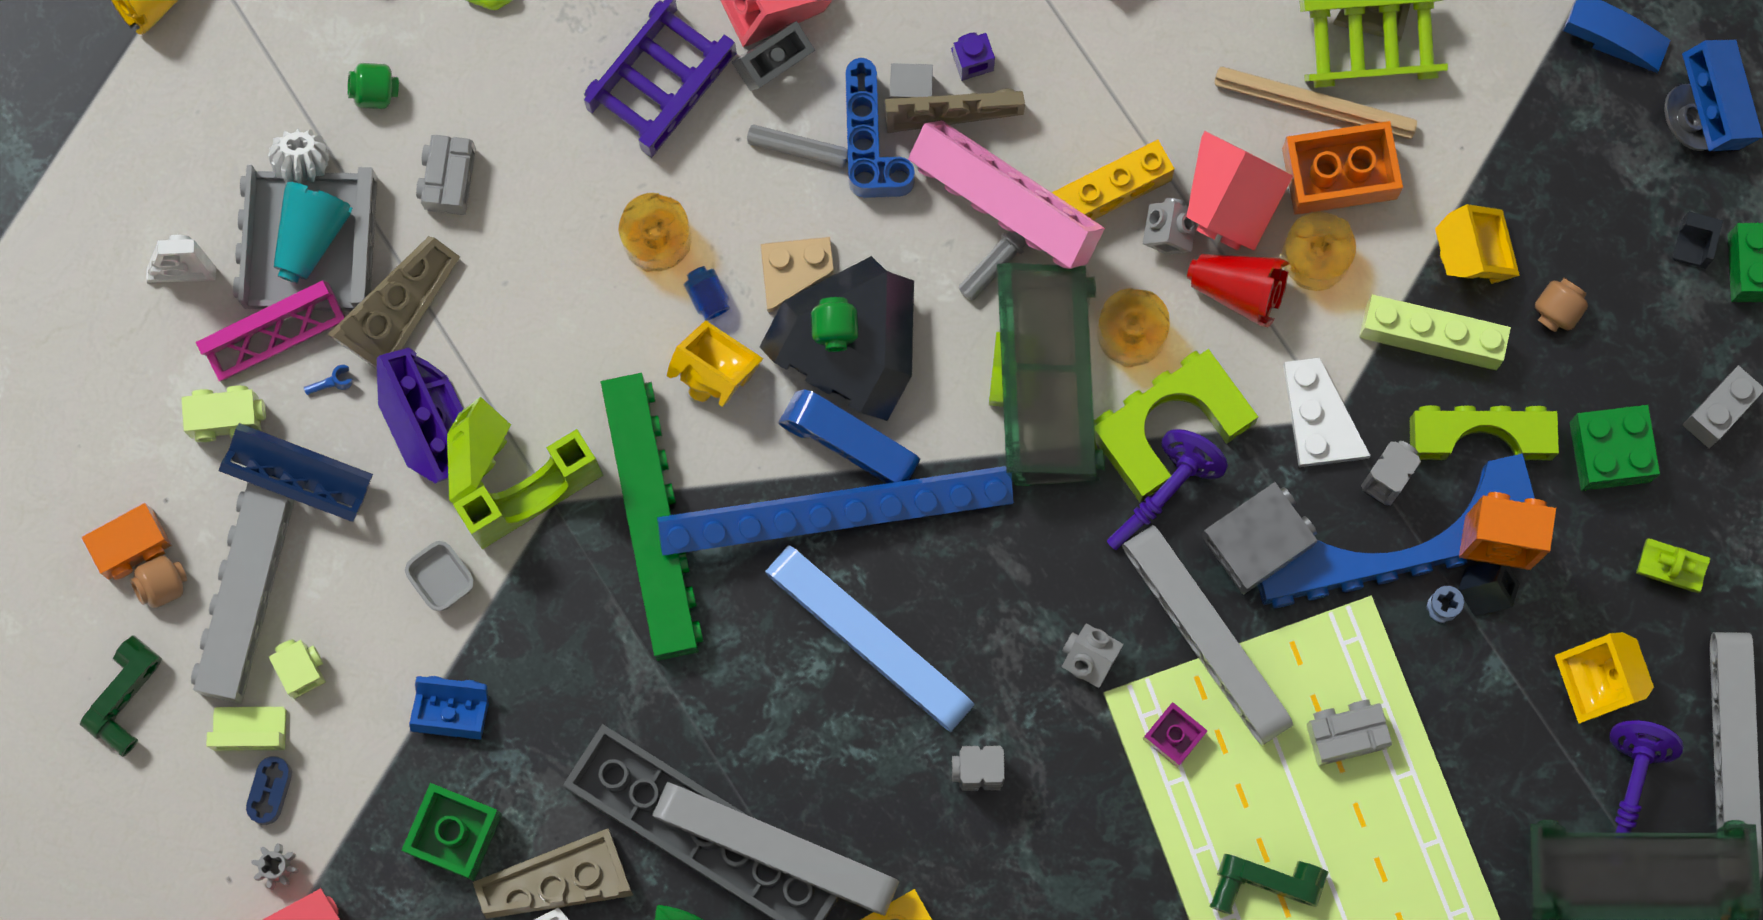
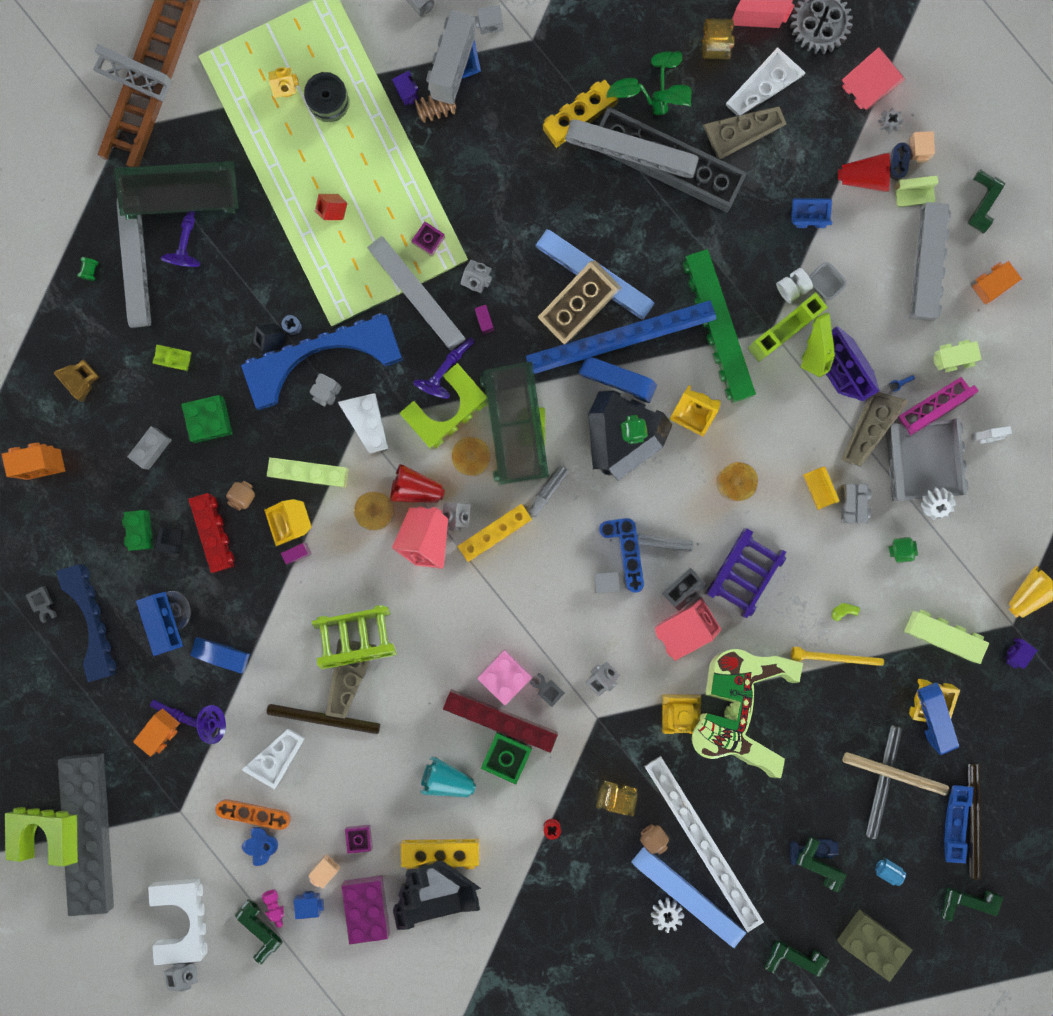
camera: 170 degrees right, 10 degrees up
(158, 582) = (976, 262): medium nougat head -> none
(223, 810) = (922, 146): none -> light nougat brick
(297, 667) = (895, 225): yellowish green brick -> none
(298, 470) = (912, 329): dark blue fence -> none
(306, 229) = (928, 461): teal cone -> none
(335, 767) = (867, 173): none -> red cone
(452, 832) = (801, 146): green brick -> none
(505, 210) = (821, 487): none -> yellow panel
(512, 568) = (792, 287): none -> white wheel
(707, 293) = (704, 452): clear blue brick -> none
(794, 267) = (658, 473): tan wing -> none
(904, 579) = (579, 302): none -> tan brick
(913, 112) = (589, 569): dark tan wing -> none
(973, 55) = (574, 603): dark purple brick -> none
(979, 768) = (529, 207): light grey brick -> none
(1005, 194) = (548, 520): bright pink brick -> none
(1084, 573) = (484, 319): none -> magenta piece
(1260, 537) = (392, 343): flat silver brick -> none
(1304, 885) = (390, 170): dark green beam -> none
(1312, 101) = (383, 597): tan axle -> none
(1342, 167) = (365, 558): orange brick -> none
(1348, 733) = (337, 248): light grey brick -> none
(1354, 814) = (330, 206): none -> red panel
(1466, 190) = (296, 553): none -> magenta piece
(1507, 531) = (259, 354): orange brick -> none
(1525, 432) = (302, 417): lime arch -> none
(1604, 675) = (203, 291): yellow brick -> none
(1618, 244) = (211, 532): none -> red brick

